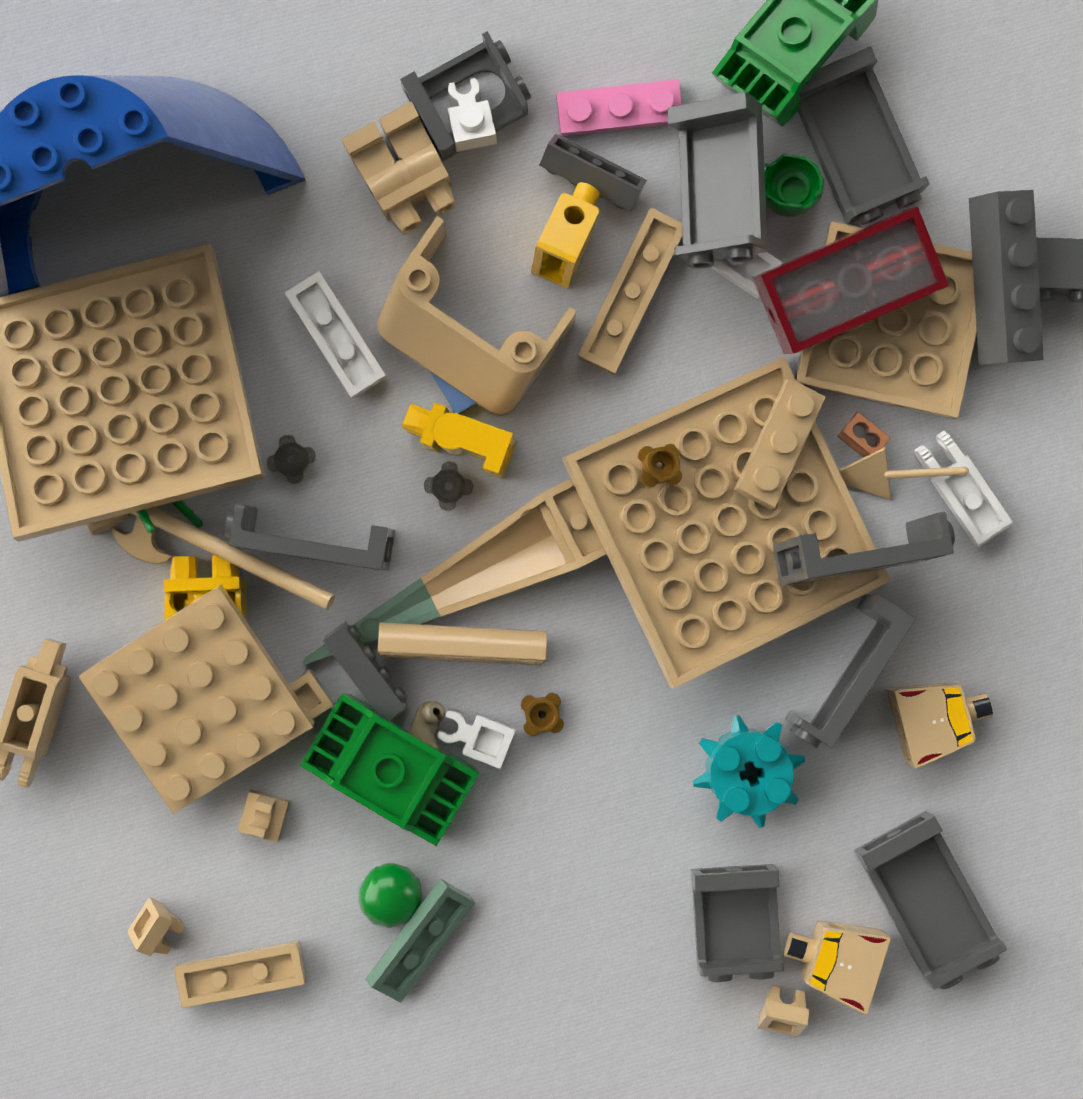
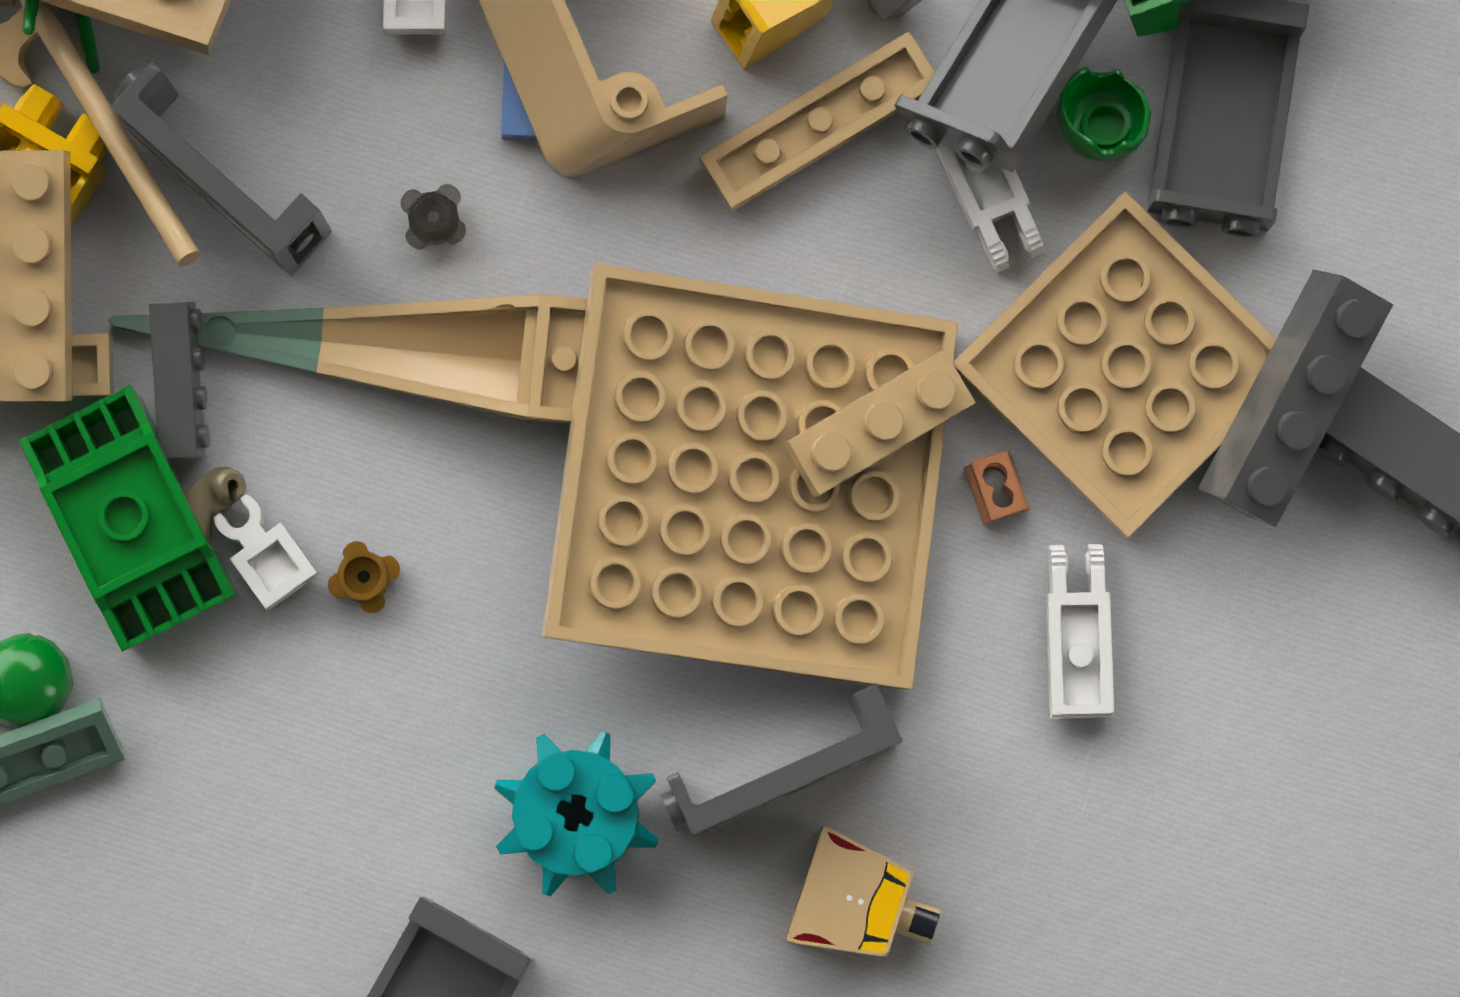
camera: 30 degrees right, 5 degrees down
(295, 470) = (276, 64): clear smoke plate -> none
(461, 436) = (487, 163): yellow hips -> none
(461, 644) = (318, 421): tan brick -> none
(668, 457) = (724, 344): pearl gold plate -> none
(800, 559) = (802, 590): dark grey panel -> none
(851, 281) = (1095, 274): clear brick -> none
(872, 474) = (974, 545): tan piece -> none

